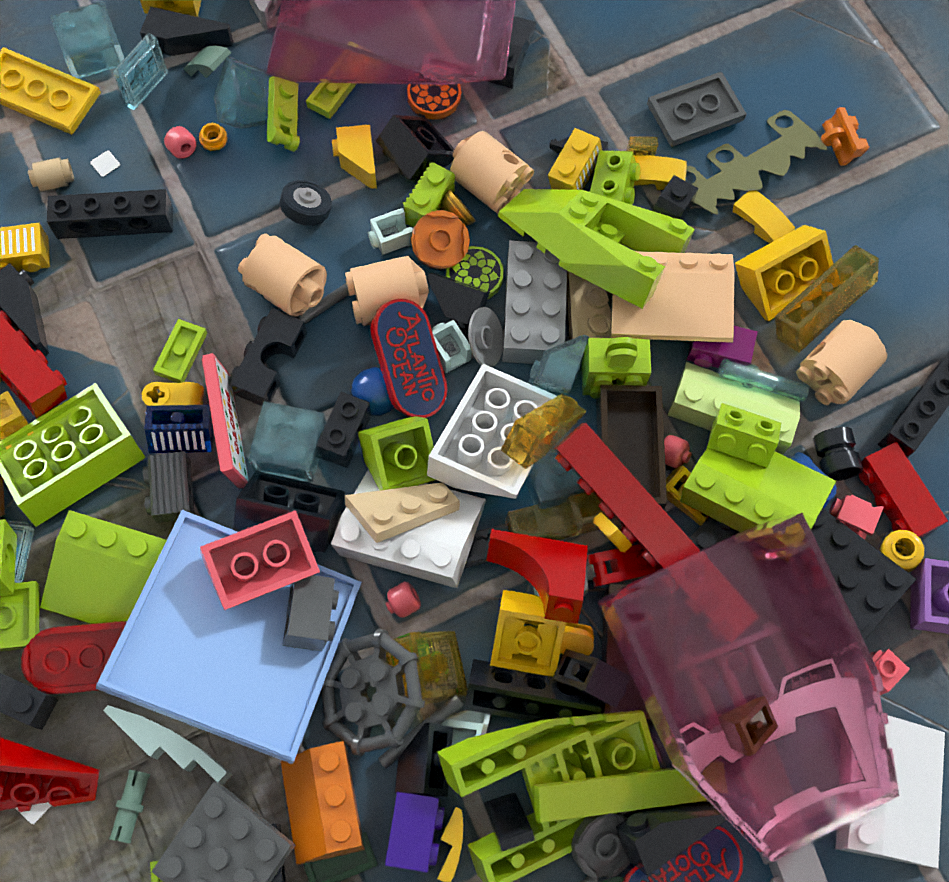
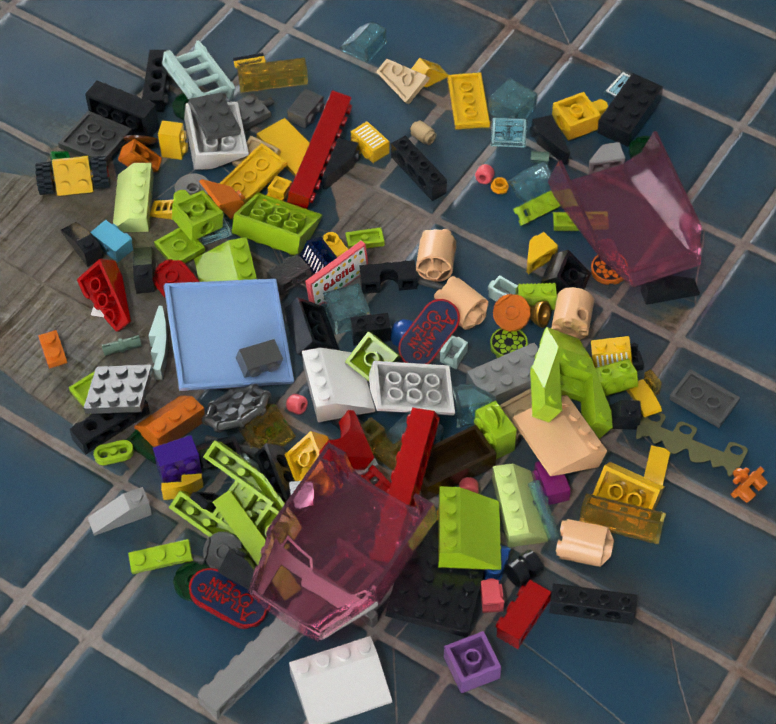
camera: 65 degrees right, 15 degrees down
(105, 163) = (449, 151): white sticker -> none
(259, 560) = (270, 317): coral slope -> none
(305, 202) = (490, 244): black wheel -> none
(401, 509) = (337, 367): tan wing -> none
(457, 298) = (483, 340): black slope -> none
(485, 337) = (474, 353): light grey dish -> none
(541, 429) = (416, 395): clear yellow slope -> none
(612, 532) = (389, 466): yellow tile -> none
(744, 435) = (493, 504): lime brick -> none
(748, 726) = (323, 576): reddish brown slope -> none
(889, 667) = (404, 642): coral window -> none
(908, 544) = (484, 621): yellow head -> none

